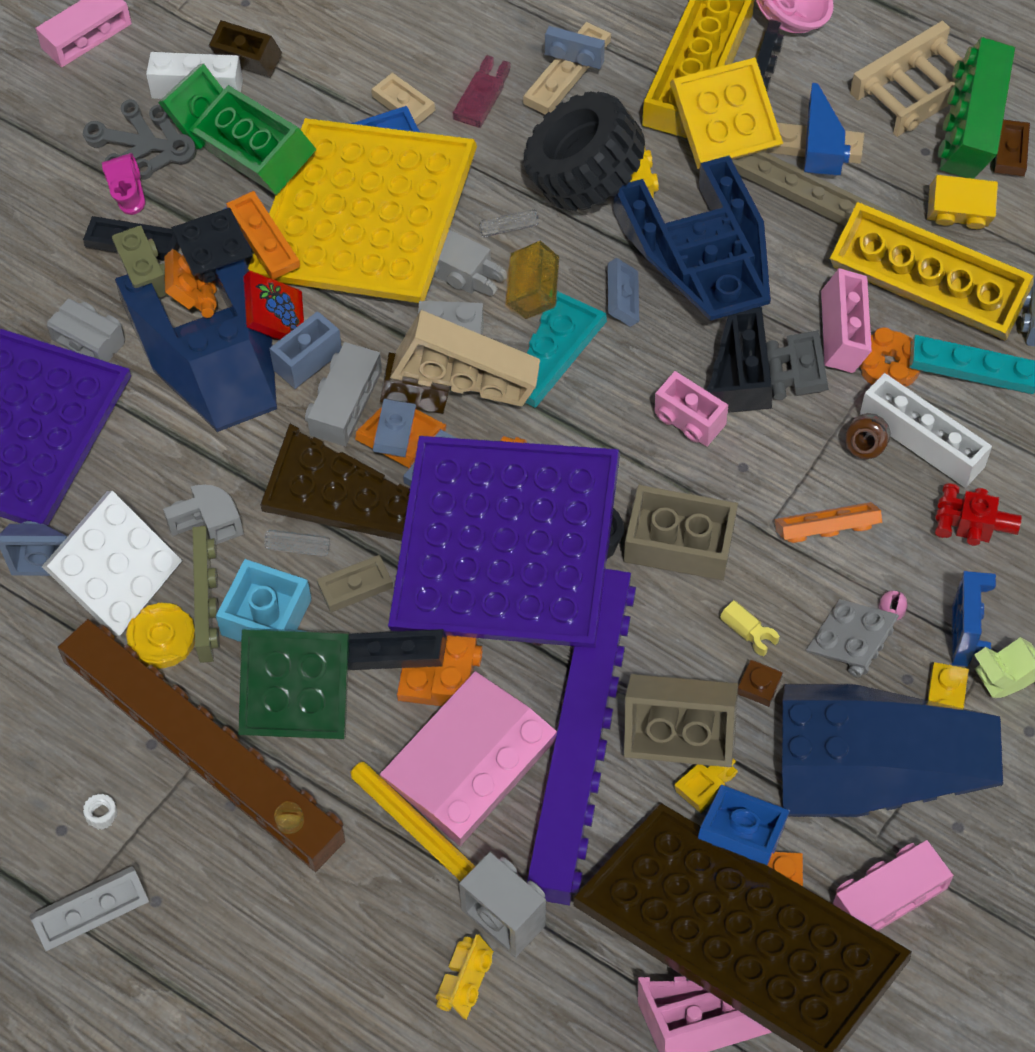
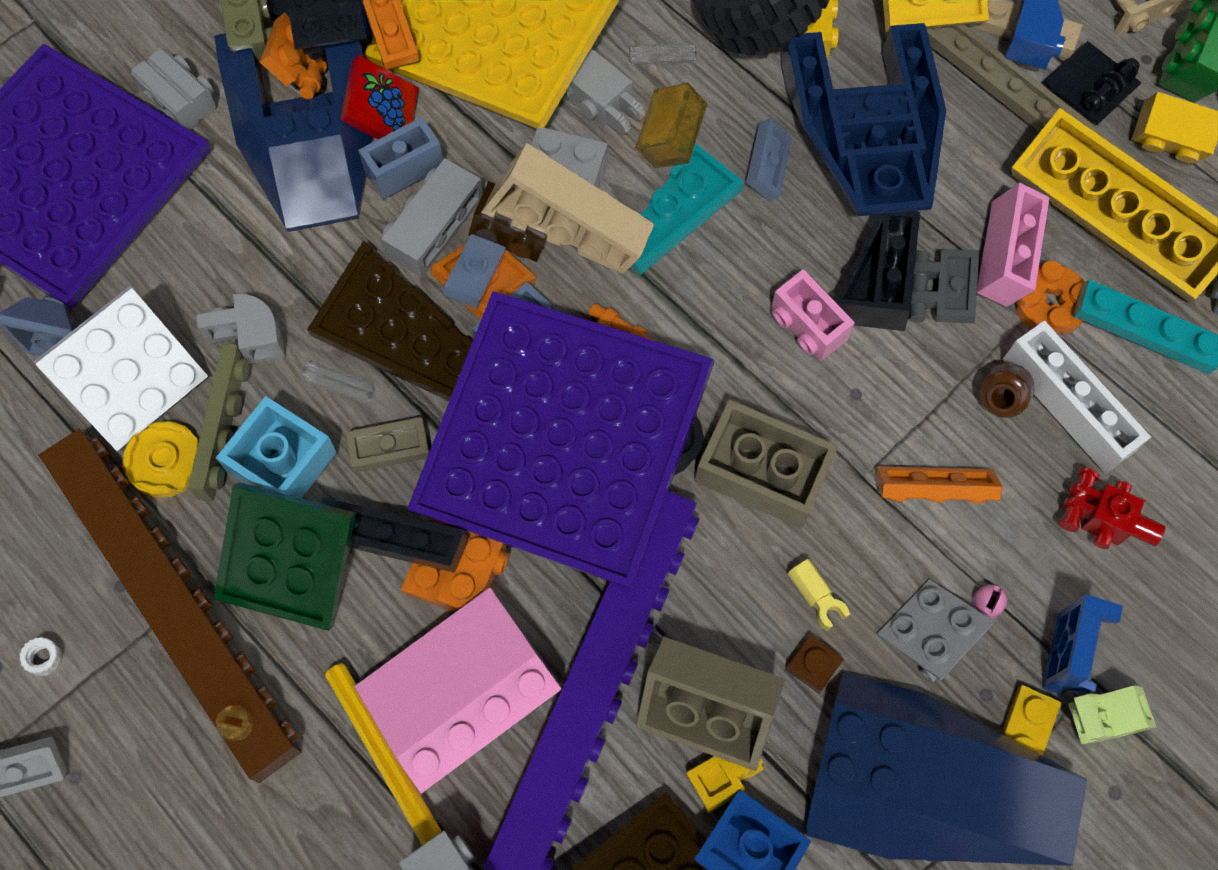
camera: 10 degrees right, 10 degrees up
(885, 177) = (1094, 82): none -> black hinge

